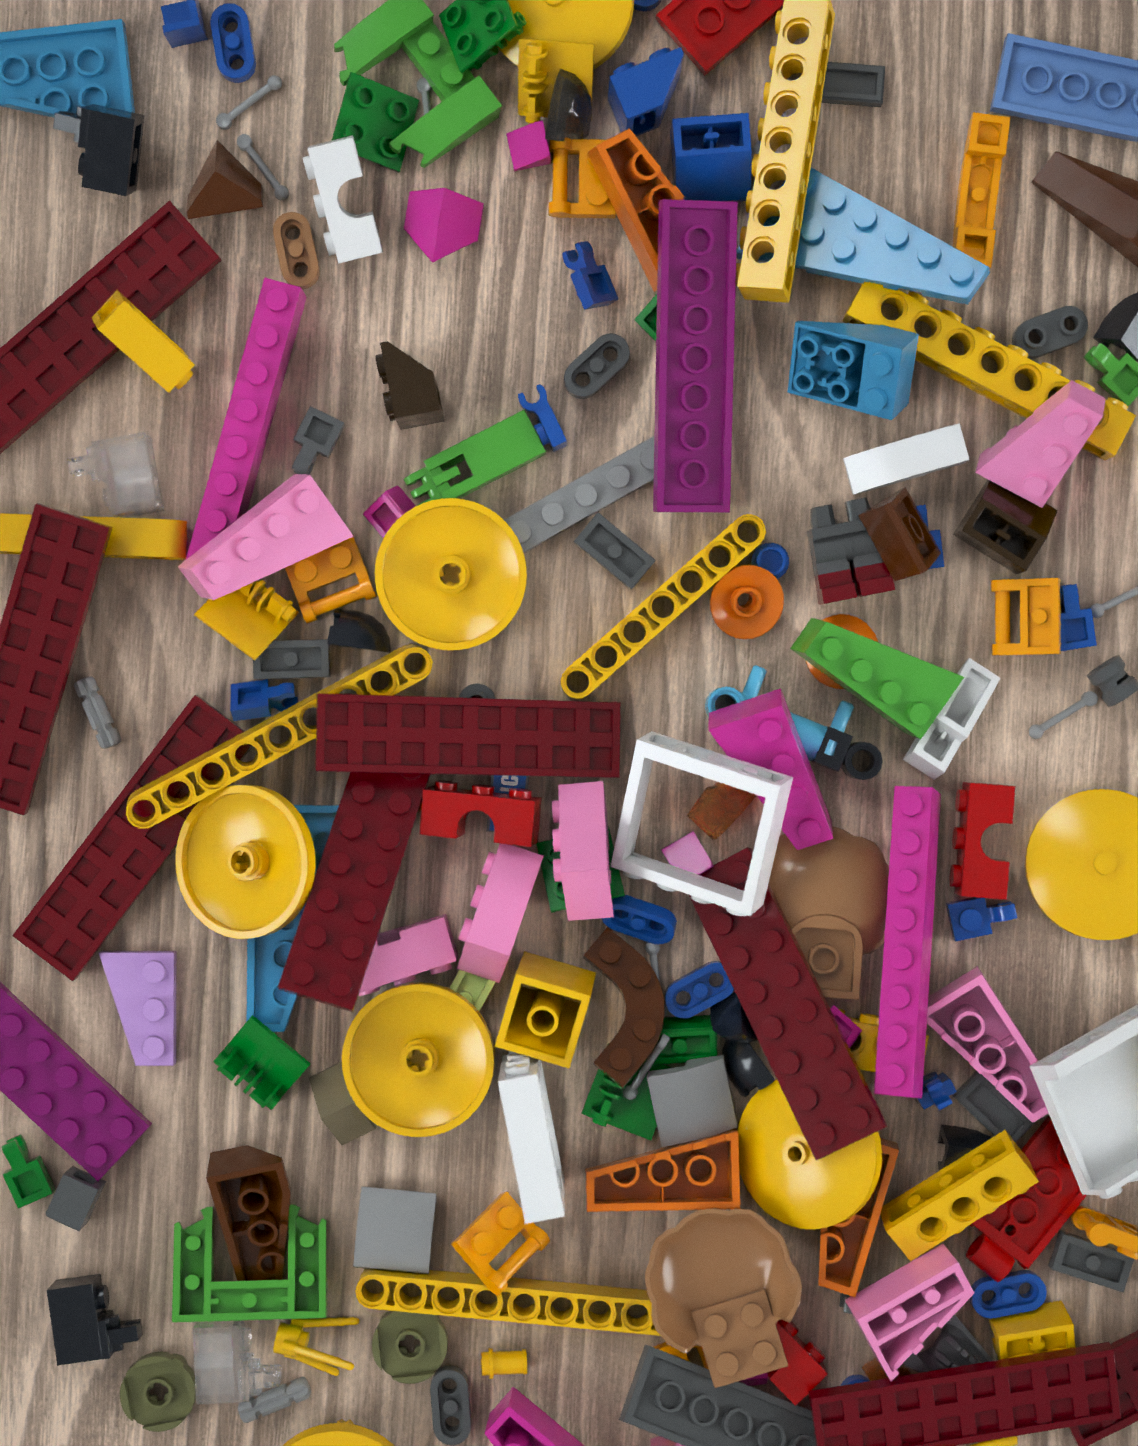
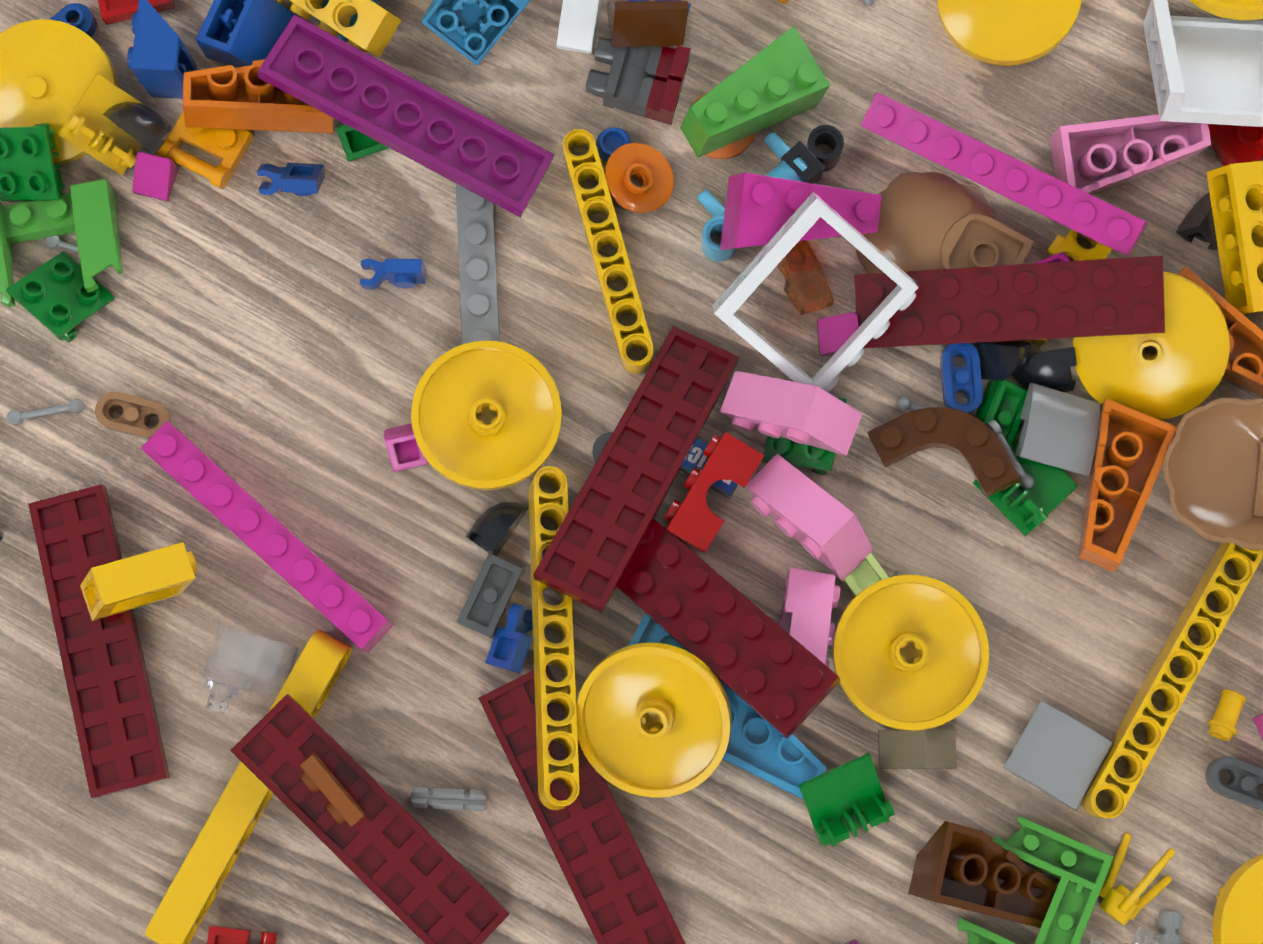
camera: 60 degrees left, 10 degrees down
(49, 597) = (341, 804): none -> dark orange plate
(146, 1002) = (738, 887): lavender wing -> none
(223, 186) = (42, 453): reddish brown slope -> none
(249, 617) = (427, 612): yellow hinge -> none
(270, 536) = (370, 552): bright pink wedge -> none
(316, 436) = (305, 477): dark grey plate -> none
(324, 569) = (423, 527): light orange plate -> none
(350, 234) = (77, 343): white arch -> none
(396, 1359) = (1191, 784): olive plate -> none
(413, 389) = (305, 368): dark brown slope -> none
(442, 221) = (174, 278): dark pink slope -> none
(487, 454) = (399, 335): bright green hinge -> none
(491, 1233) = (1102, 667): light orange plate -> none
(532, 1137) = (1029, 573): white window -> none
(546, 1009) = (919, 511): yellow slope -> none
(595, 366) = (371, 210): dark grey plate -> none
(614, 551) = (538, 269): dark grey plate -> none
(642, 920) = (877, 403): blue plate -> none
(936, 1091) = (1150, 212): blue plate -> none
(954, 722) = (846, 81): white slope -> none
(972, 917) = (1005, 120): blue plate -> none
(979, 808) = (962, 98): red arch -> none
(992, 1107) = (1178, 181): dark grey tile -> none

